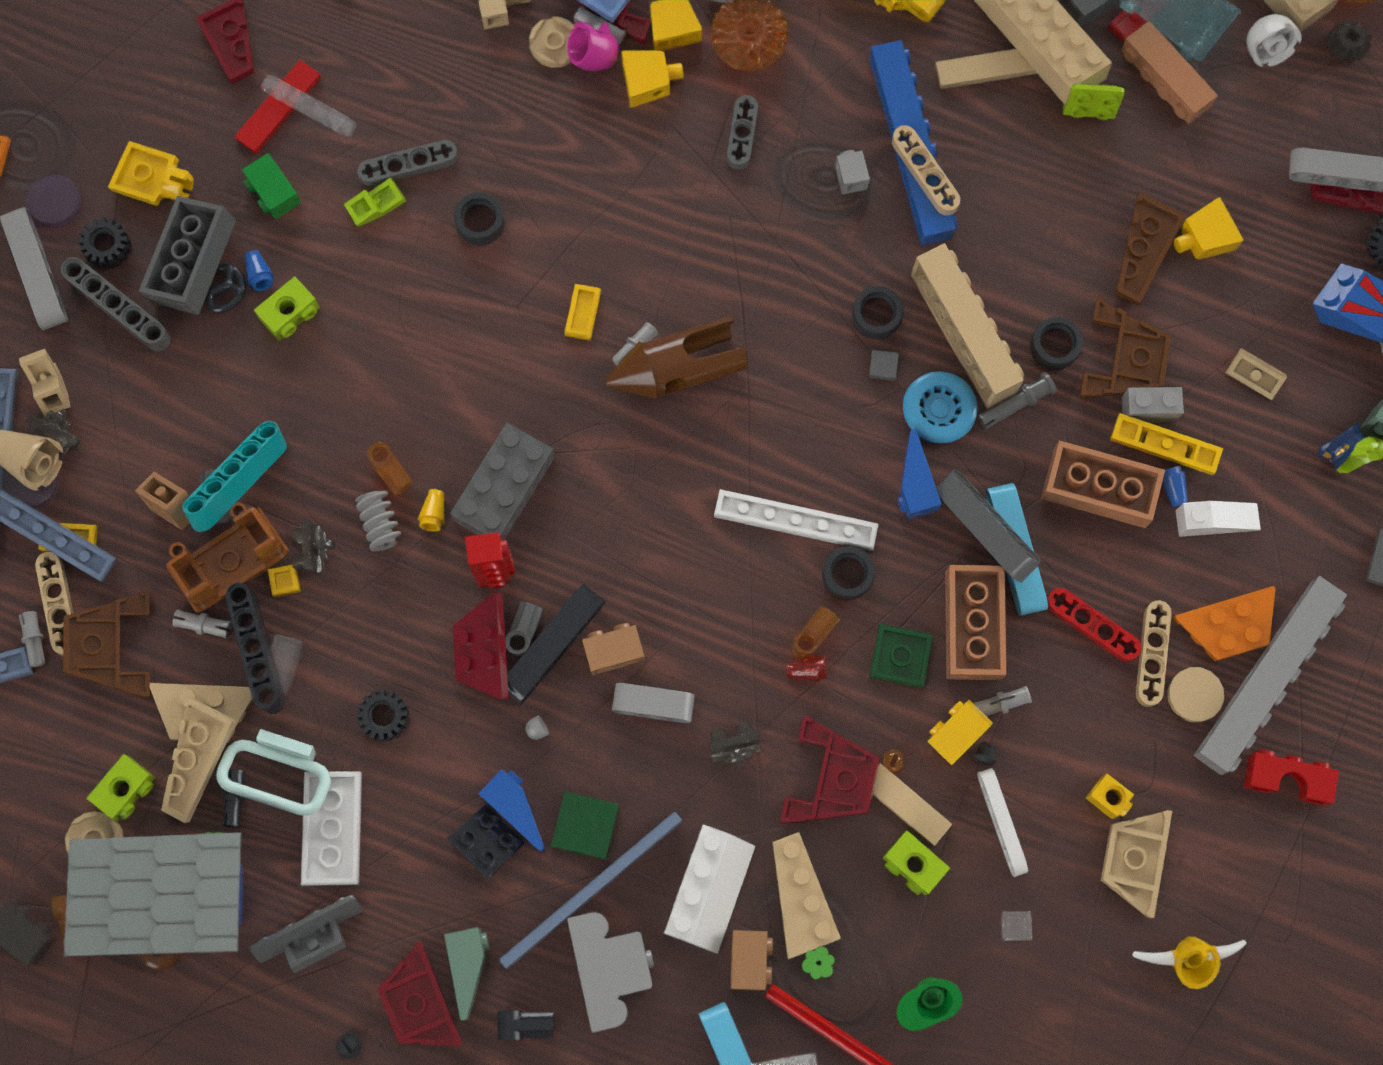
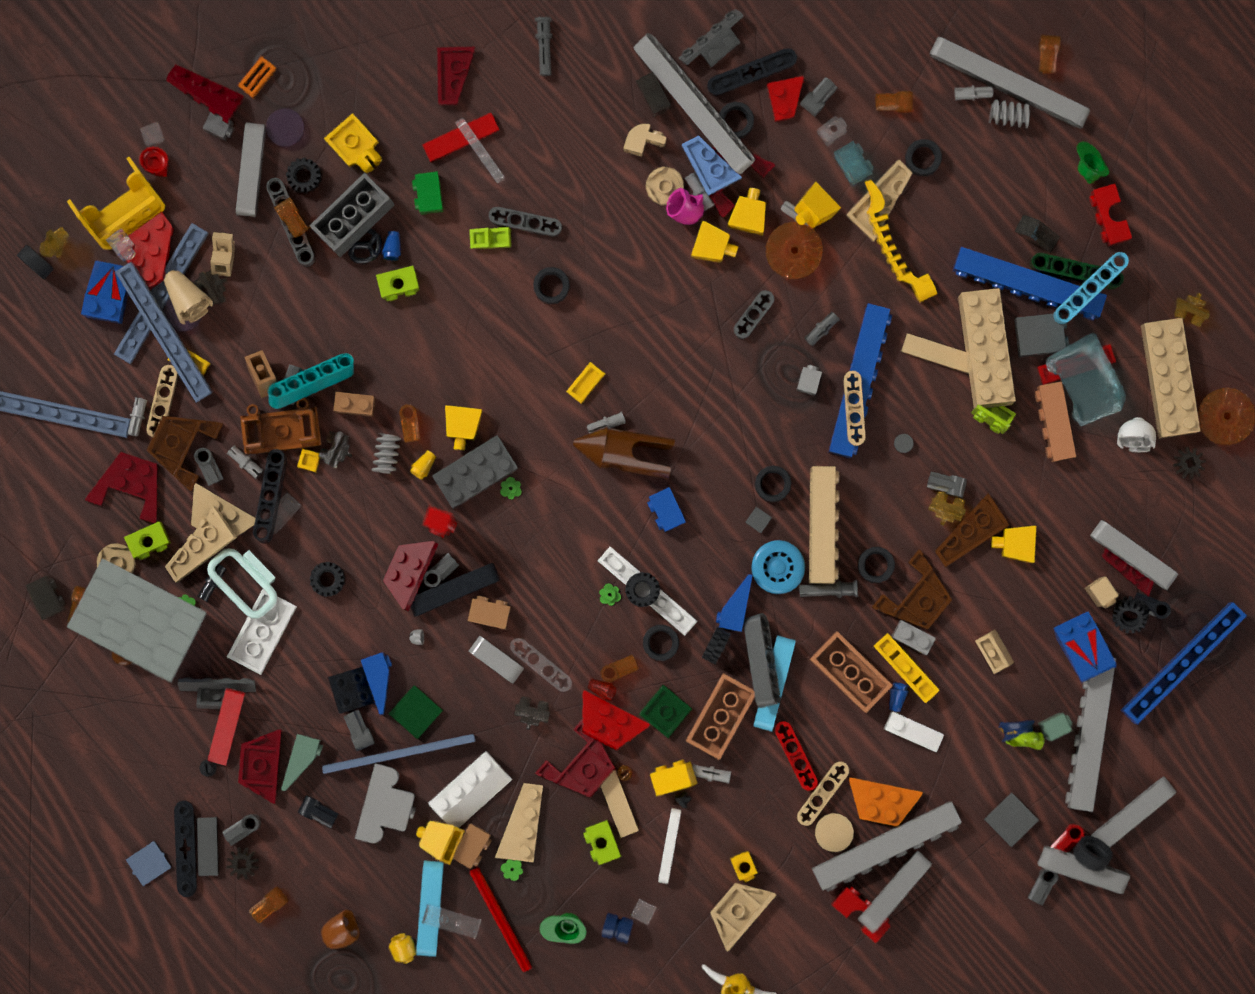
camera: 30 degrees right, 10 degrees up
(62, 719) = (132, 477): none -> dark red wing
(105, 288) = (289, 214): none -> clear orange piece
(157, 653) = (209, 468): none -> dark grey piece
(306, 480) = (354, 404): none -> medium nougat brick
(345, 976) = (226, 726): none -> red tile
(455, 436) = (462, 424): none -> yellow torso
(528, 891) = (359, 732): none -> dark grey piece
(553, 491) = (510, 482): none -> bright green plant
(705, 972) = (440, 840): none -> yellow torso
(714, 675) = (543, 661): none -> clear beam
(748, 556) = (608, 588): none -> bright green plant
(765, 409) = (666, 509): none -> blue brick
(790, 502) = (642, 601): none -> black tyre
(832, 107) = (822, 328): none -> dark grey pin
(838, 706) = (609, 723): none -> red wing
(920, 538) = (716, 645): none -> black tyre
(996, 965) = (617, 928): none -> dark blue wheel
(1004, 188) = (903, 443): none -> dark grey tile
(1091, 205) = (951, 484): none -> dark grey piece
(1101, 236) = (947, 511): none -> clear yellow hips
(1318, 725) = (895, 891): none -> light grey beam
(1344, 233) = (1102, 592): none -> tan brick

